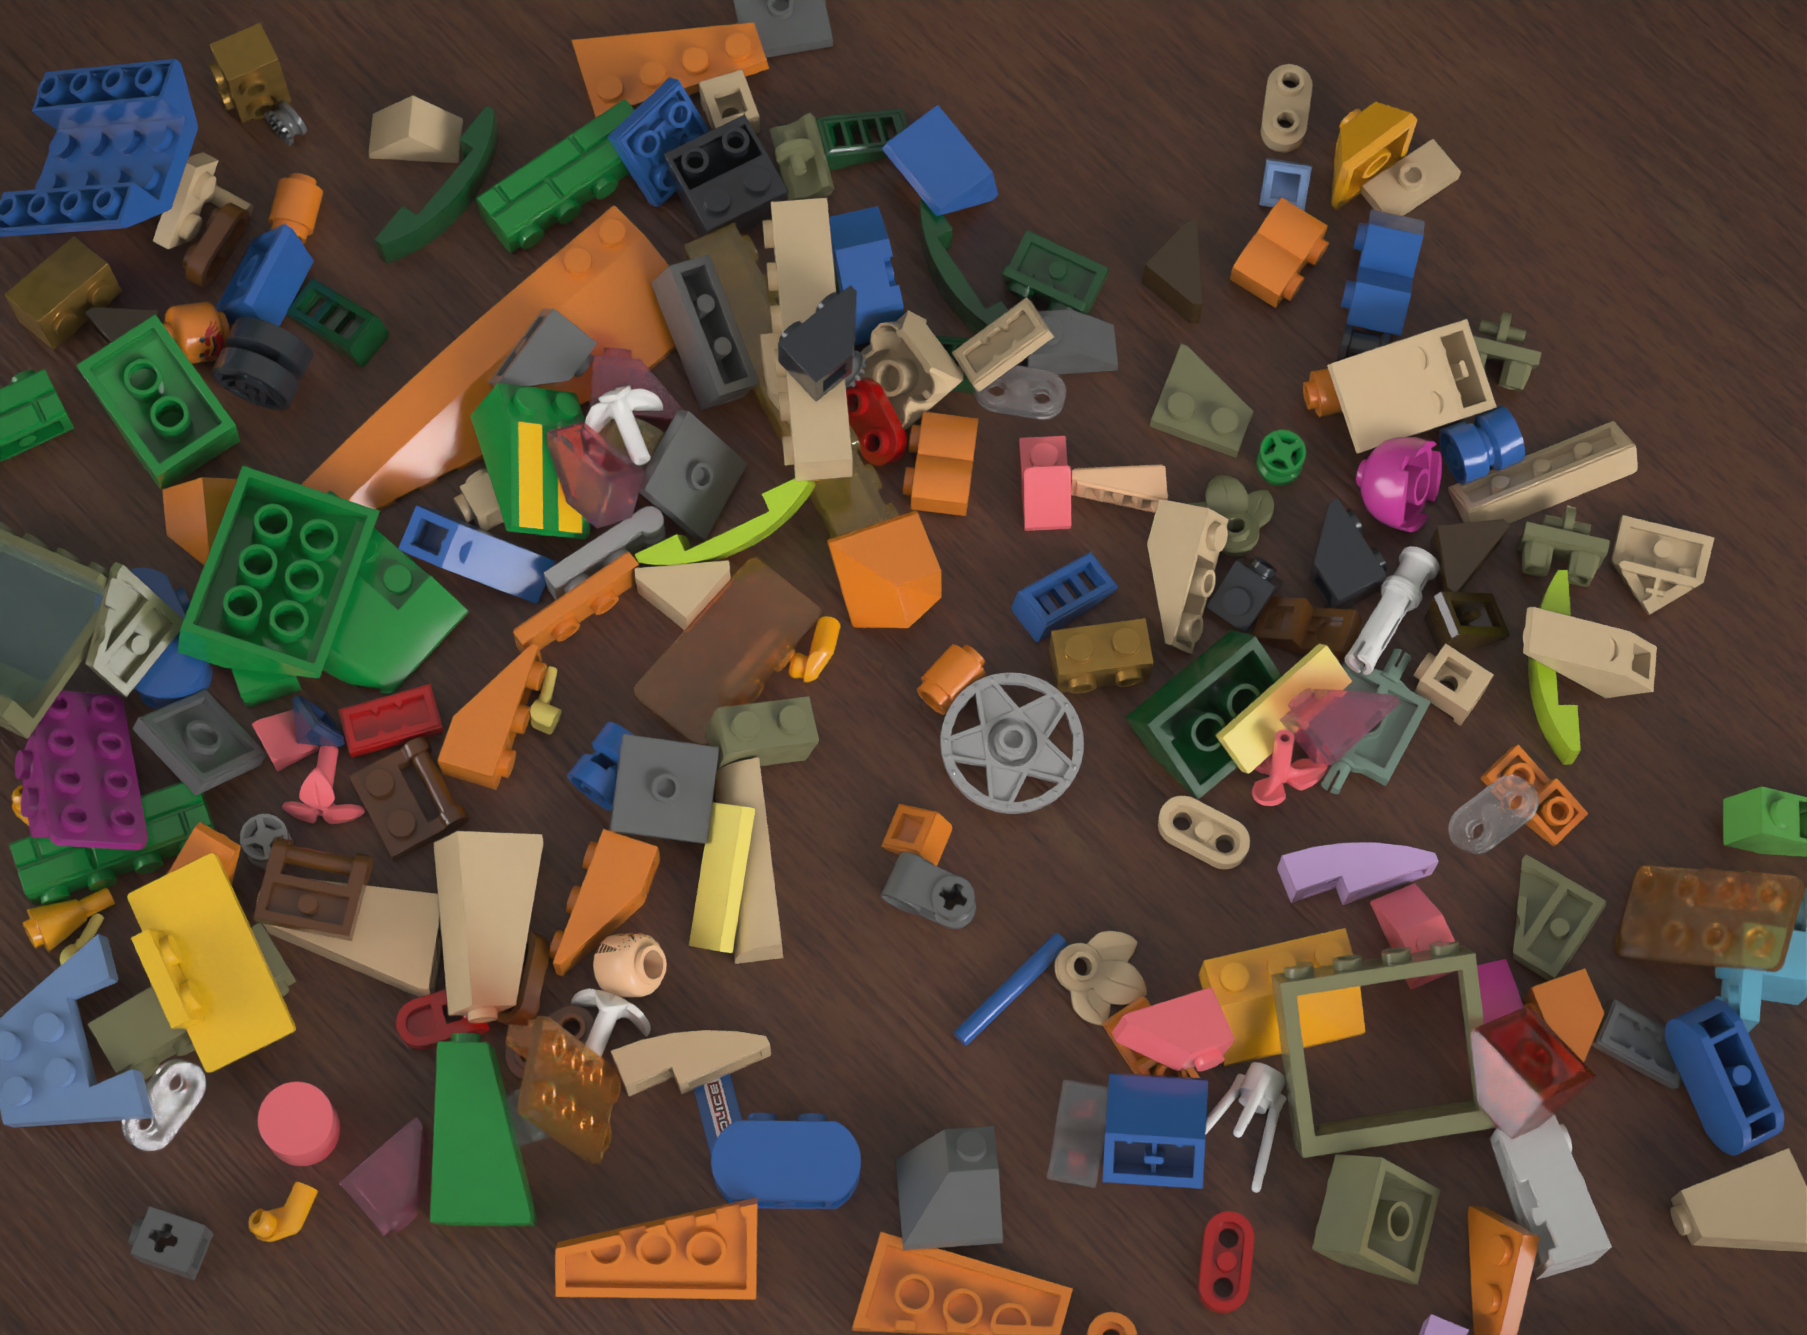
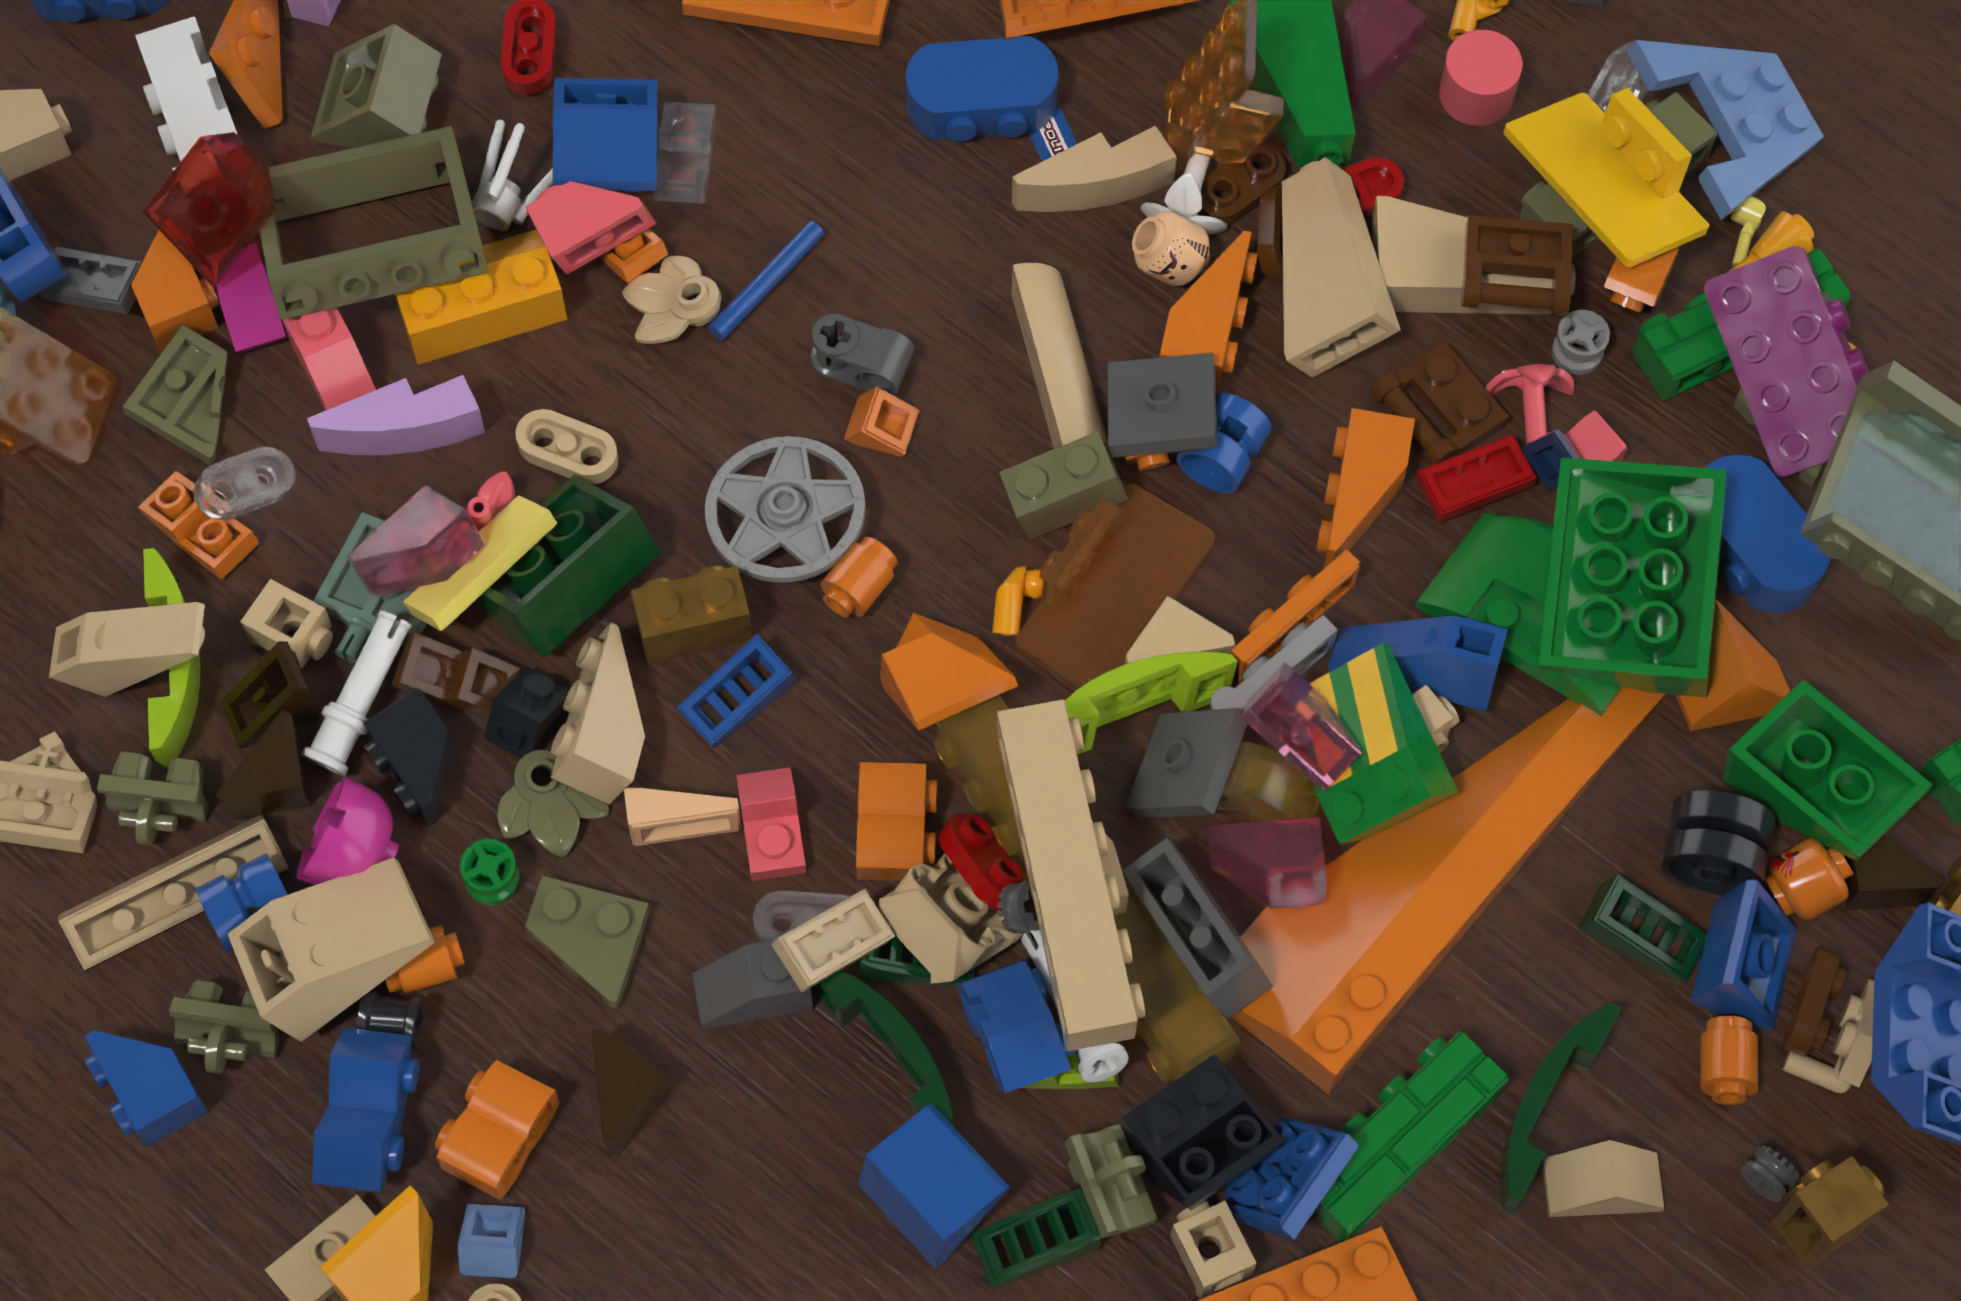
camera: 175 degrees right, 5 degrees down
(129, 631) = (1782, 494): olive wing -> none
(199, 741) = (1678, 415): dark grey plate -> none
(543, 715) = (1309, 503): light yellow hand -> none
(547, 353) = (1385, 866): dark grey slope -> none
(619, 406) = (1285, 793): white plant -> none
(722, 877) = (1086, 336): light yellow tile -> none
(822, 347) = (1048, 817): black slope -> none
(950, 1190) = (813, 73): dark grey slope -> none
(1054, 275) = (779, 1064): dark green bracket -> none
(1558, 315) = (148, 1082): none -> blue slope

